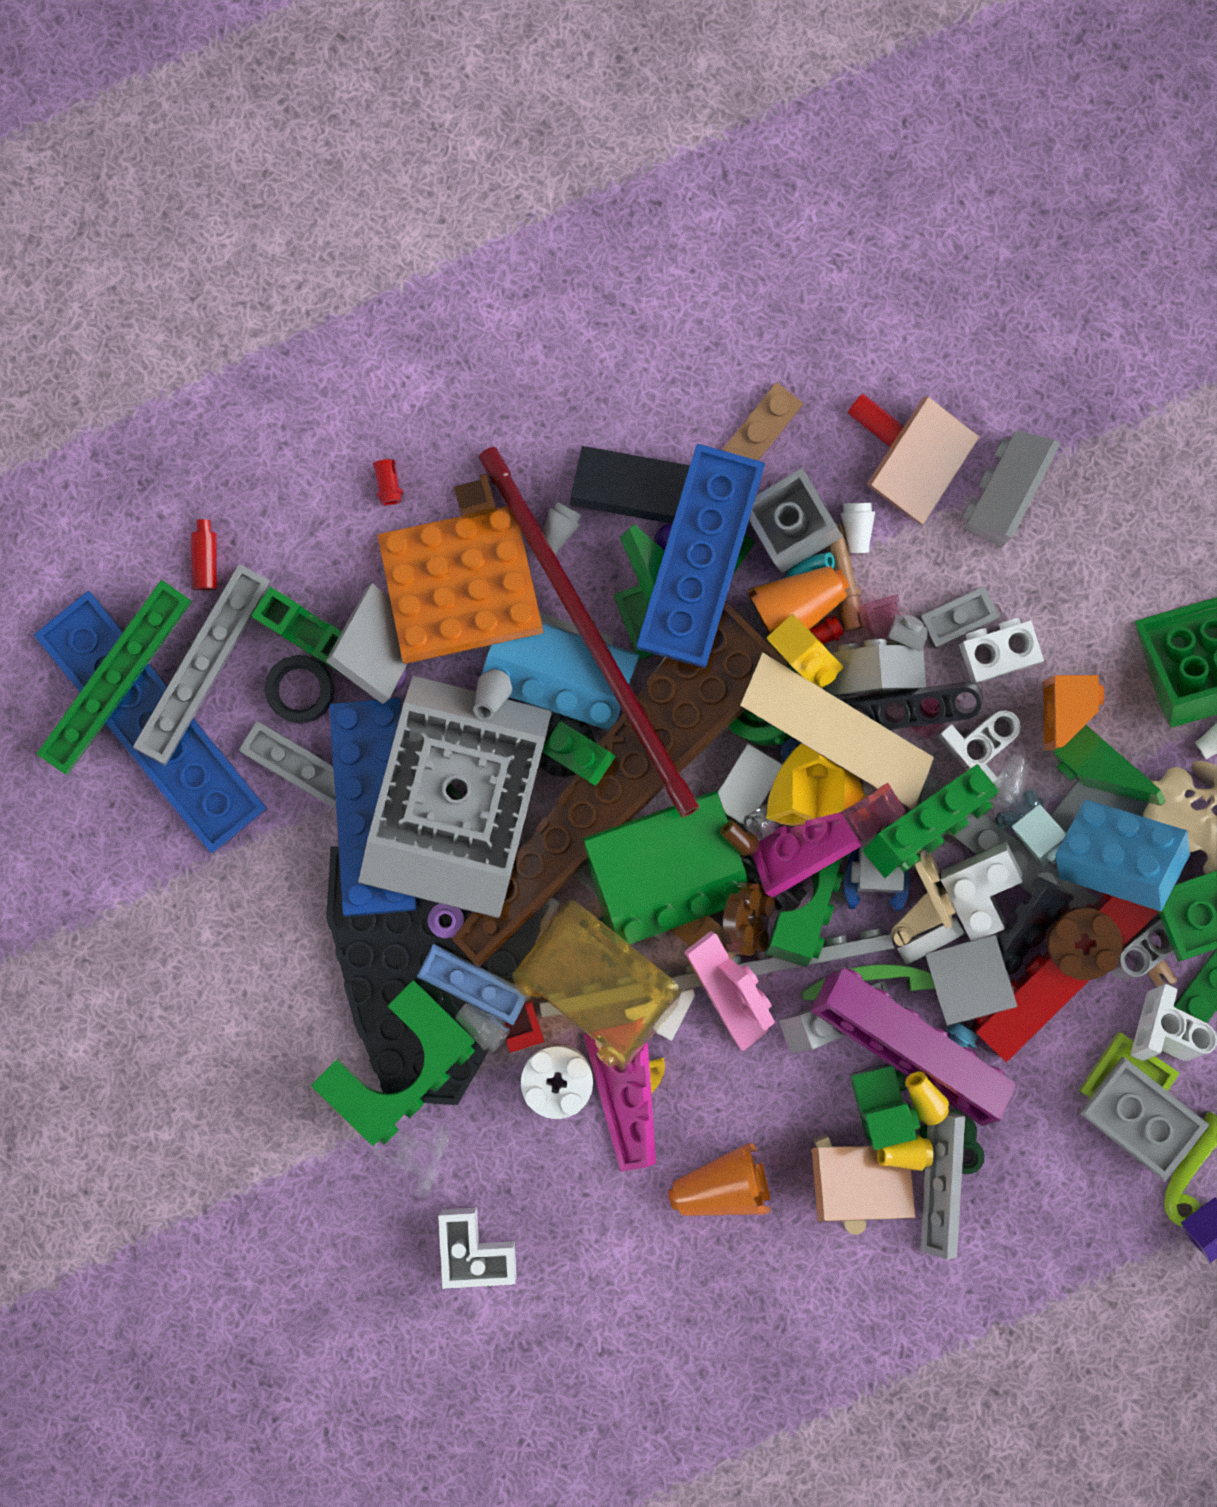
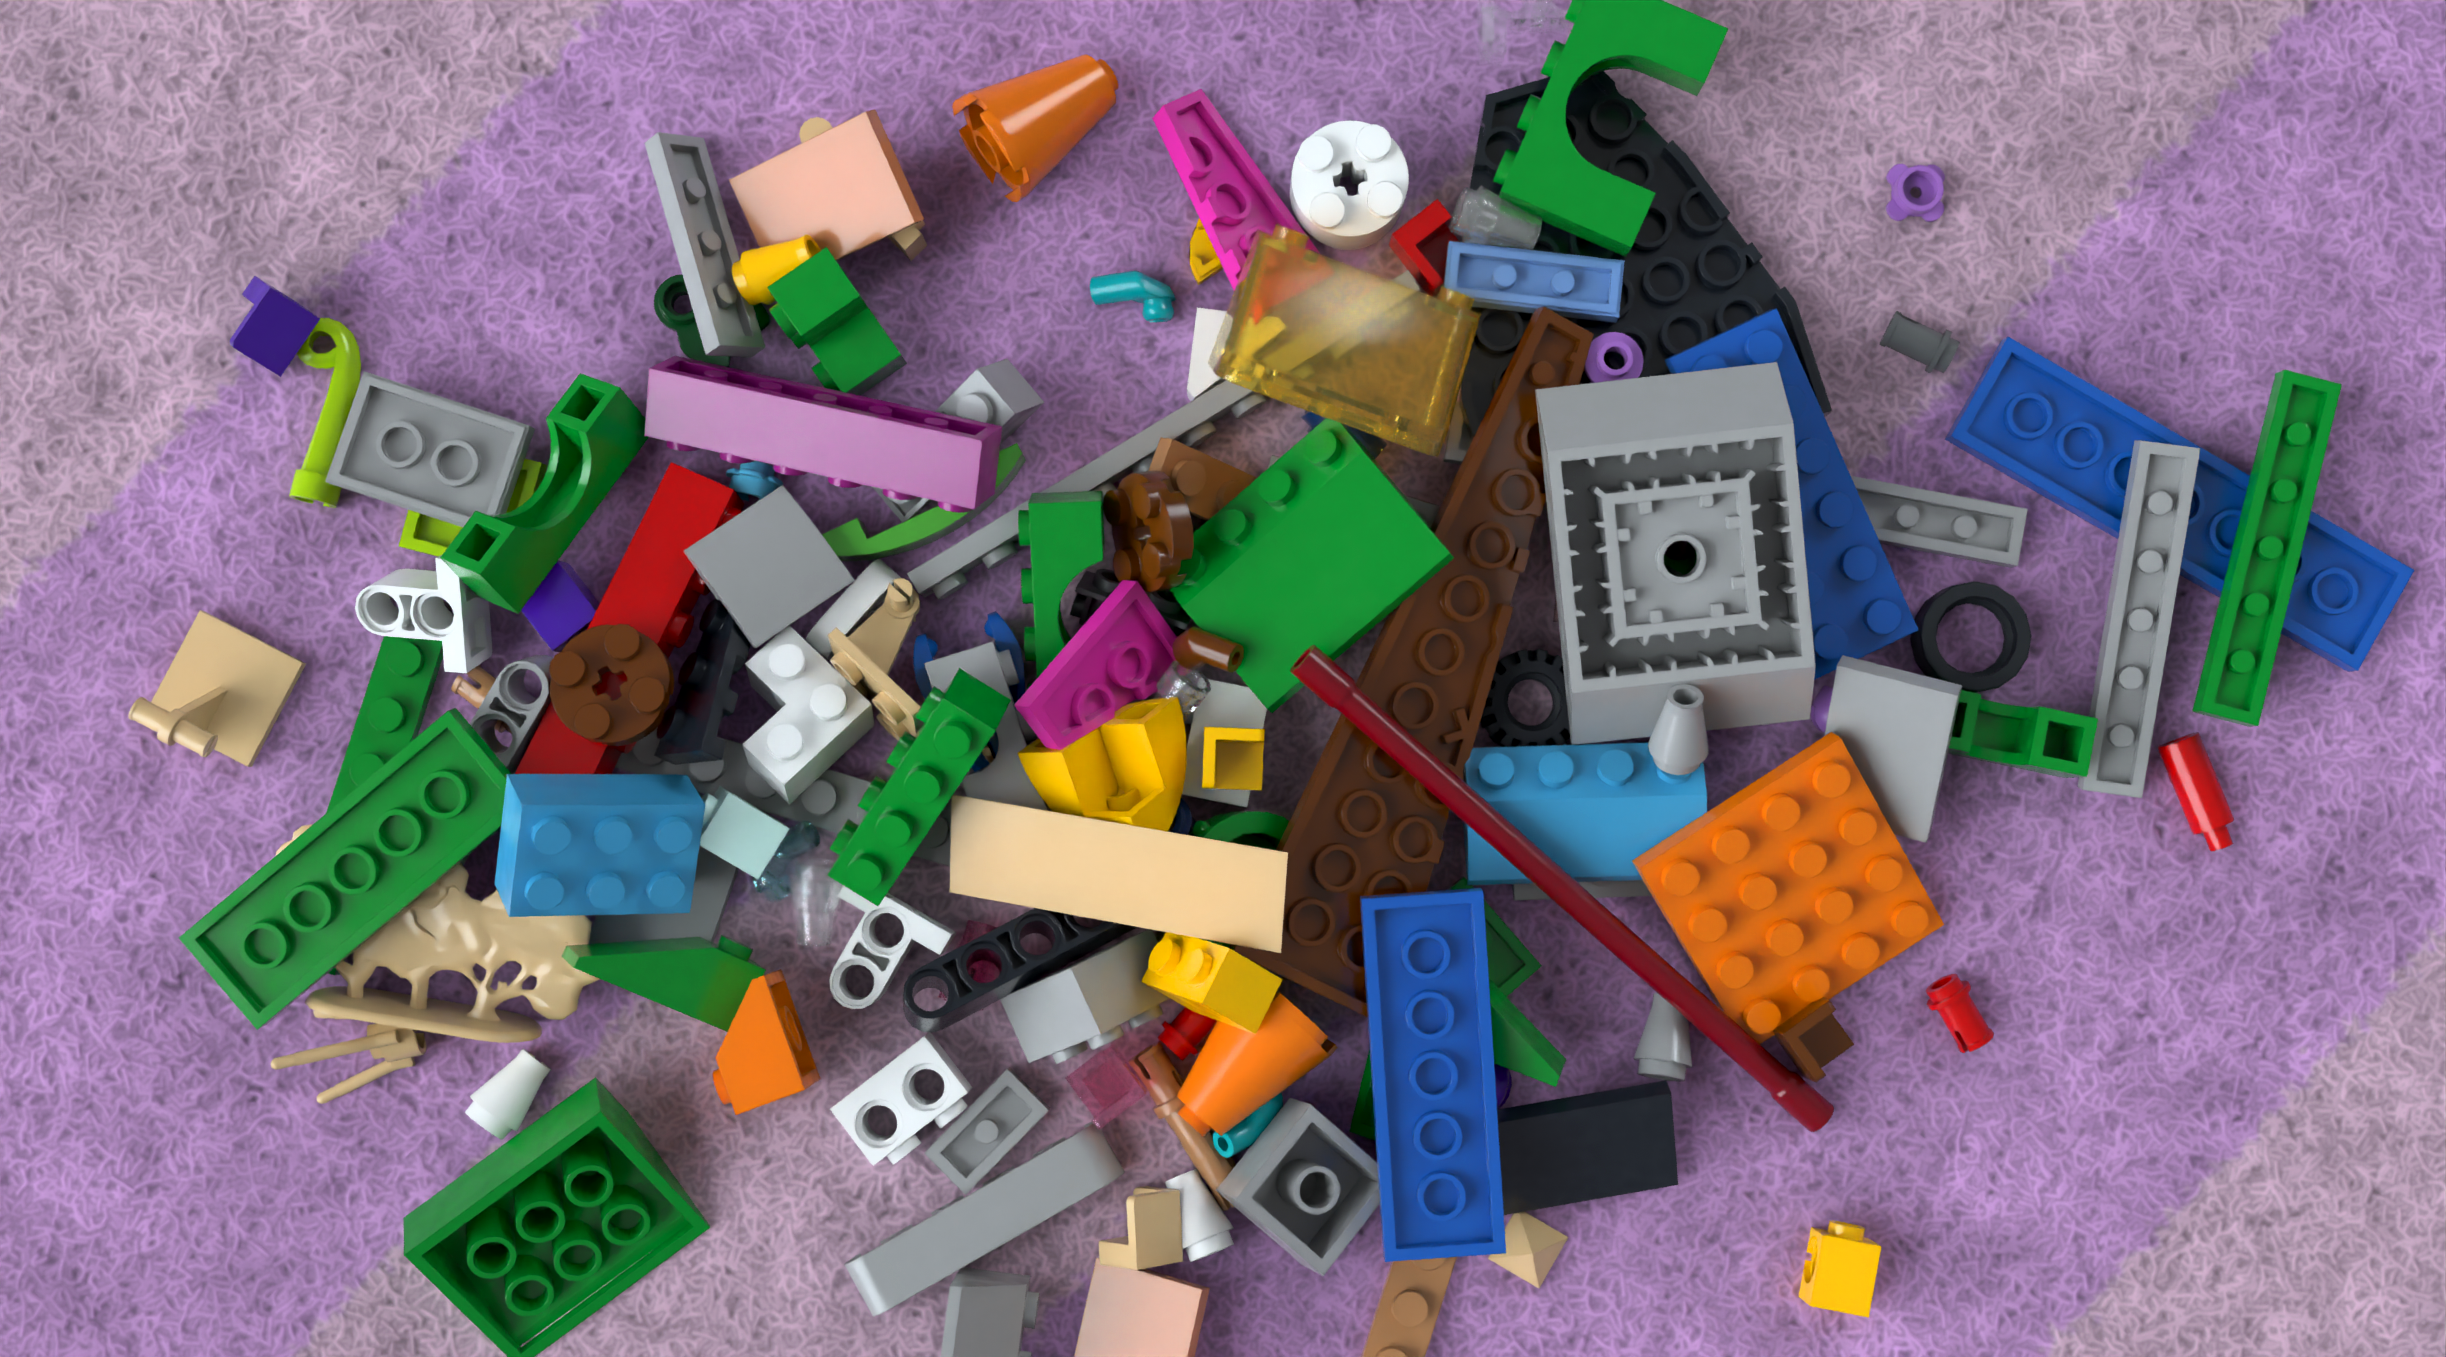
camera: 160 degrees right, 0 degrees up
(219, 960) = (1930, 184): none -> medium lavender plate
(261, 869) = (1920, 342): none -> dark grey pin
(509, 366) = (1840, 1269): none -> yellow brick
(578, 753) = (1507, 691): green plate -> none
(678, 441) = (1529, 1248): none -> tan slope
(701, 1068) = (1137, 287): none -> teal arm
(731, 991) = (1137, 413): bright pink bracket -> none
(747, 772) = (1233, 758): none -> yellow panel
(873, 812) = (1014, 765): clear pink panel -> none
(887, 527) = (1152, 1231): none -> tan panel
(908, 631) = (1059, 1076): light grey plate -> none
(927, 1099) = (771, 356): yellow cone -> none
(977, 568) = (984, 1219): none -> light grey beam
(1047, 1090) = (592, 442): none -> green arch
(1099, 1004) = (560, 606): none -> dark purple panel

